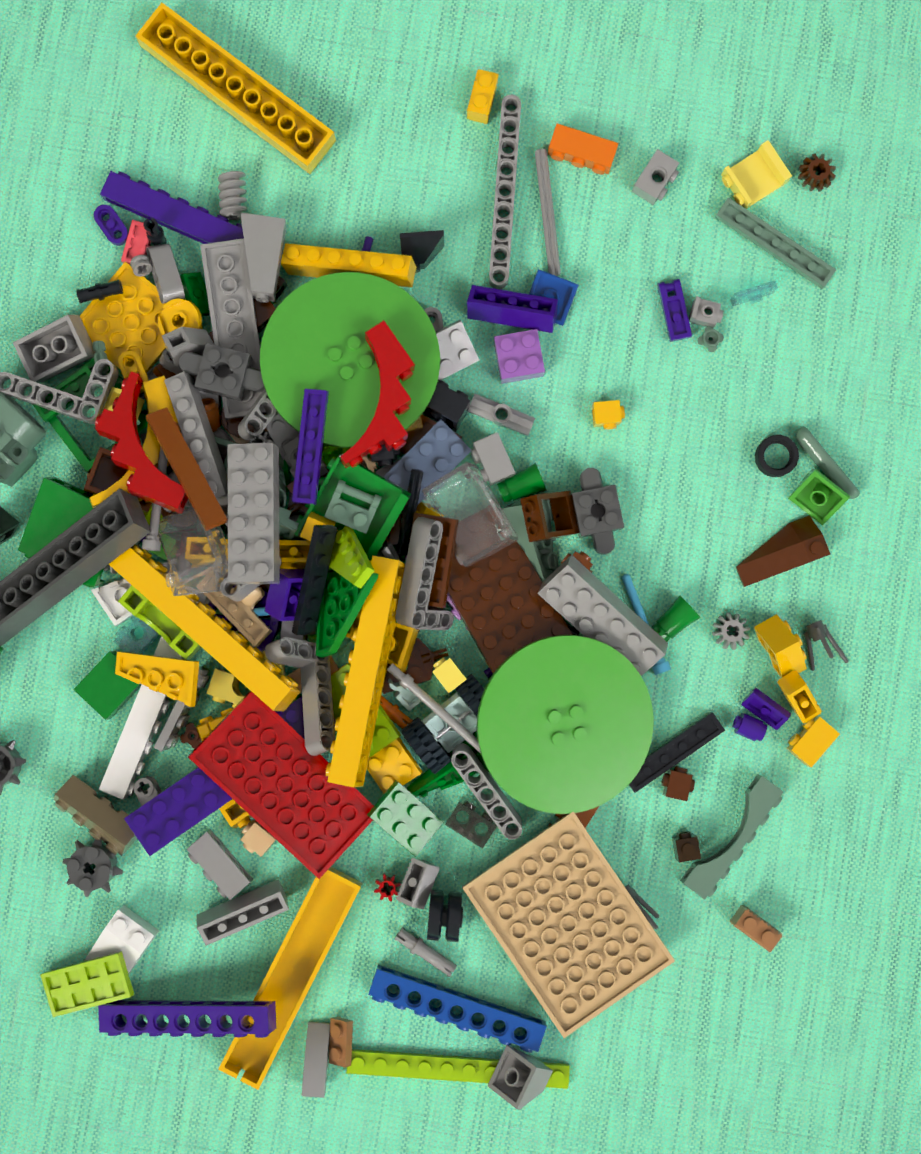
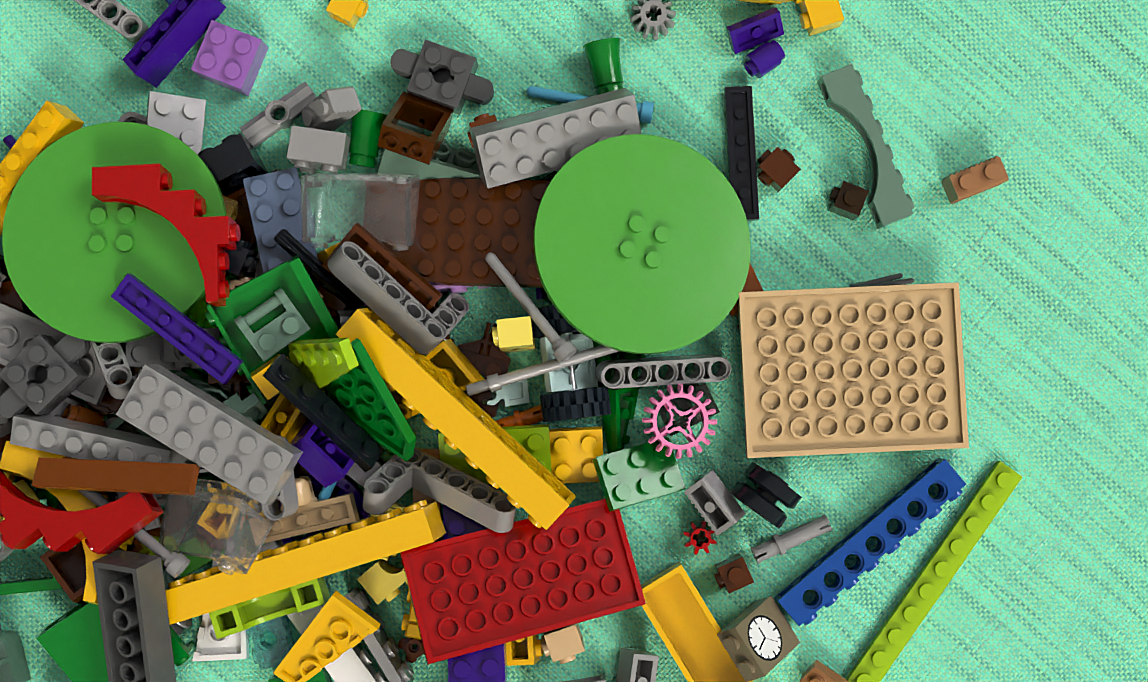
camera: 55 degrees left, 0 degrees up
(342, 971) = (758, 638): none -> dark tan brick
(376, 926) = (733, 574): none -> reddish brown brick
(422, 246) = (49, 82): black slope -> none
(458, 714) = (562, 348): none -> light grey piece
(467, 829) = (692, 440): none -> bright pink gear
(519, 1077) = (981, 520): light grey slope -> none
(526, 450) = (331, 109): none -> light grey brick

